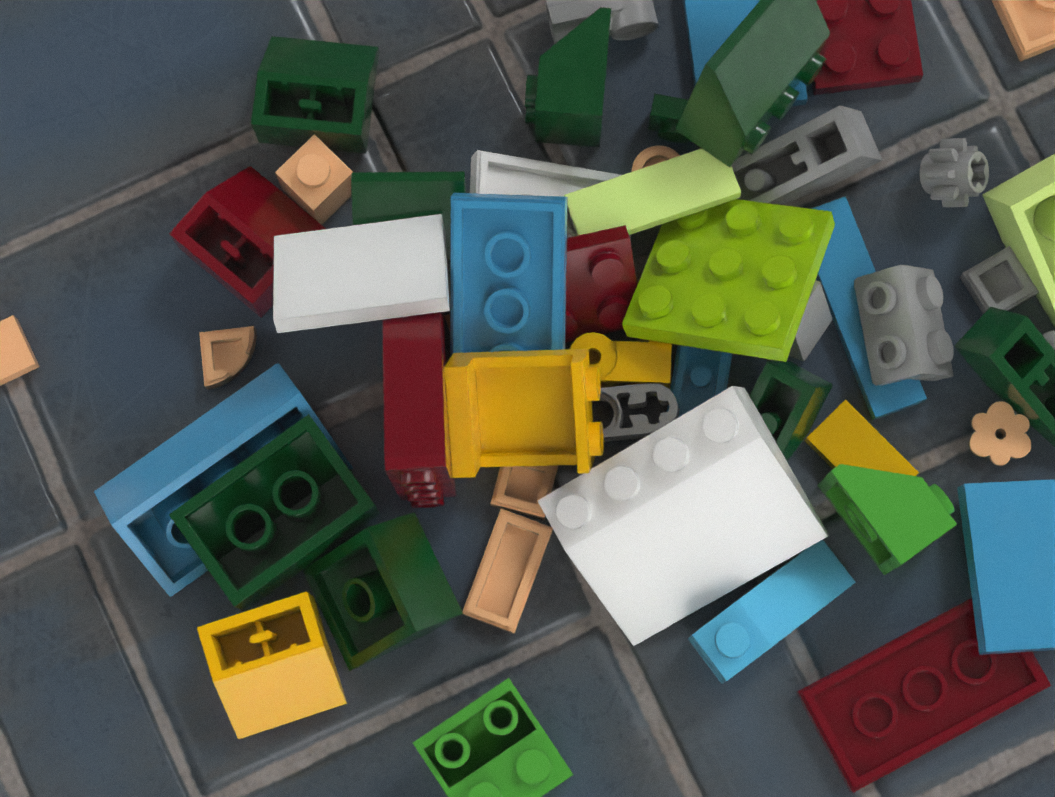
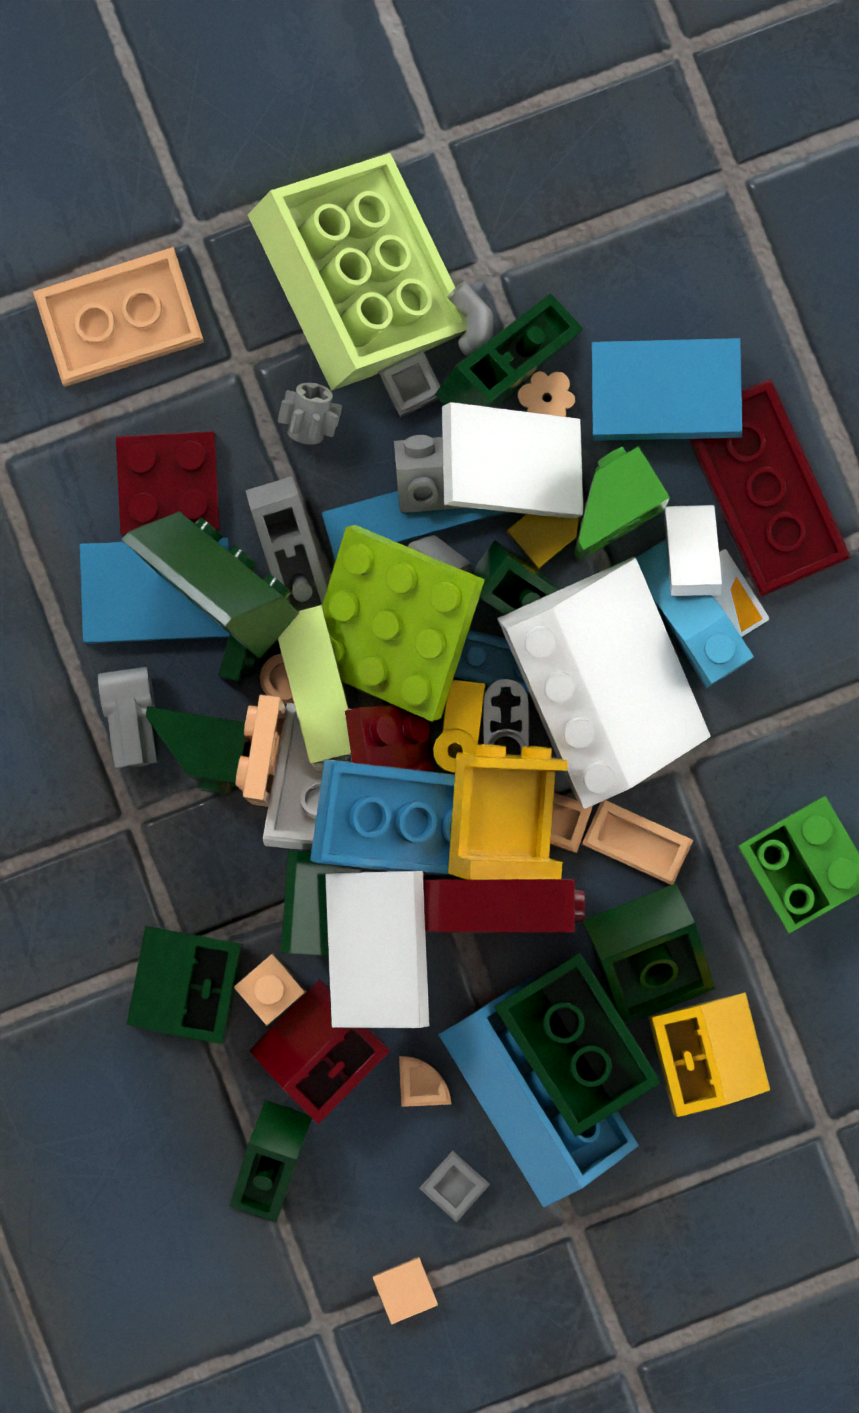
camera: 90 degrees left, 5 degrees up
(116, 397) = (454, 1186): none -> light grey tile
(133, 195) = (270, 1160): none -> dark green slope
(574, 137) = (264, 730): none -> light nougat plate
(797, 658) = (738, 598): none -> white sticker
(842, 606) = (692, 550): none -> white tile
(925, 389) = (512, 461): none -> white tile

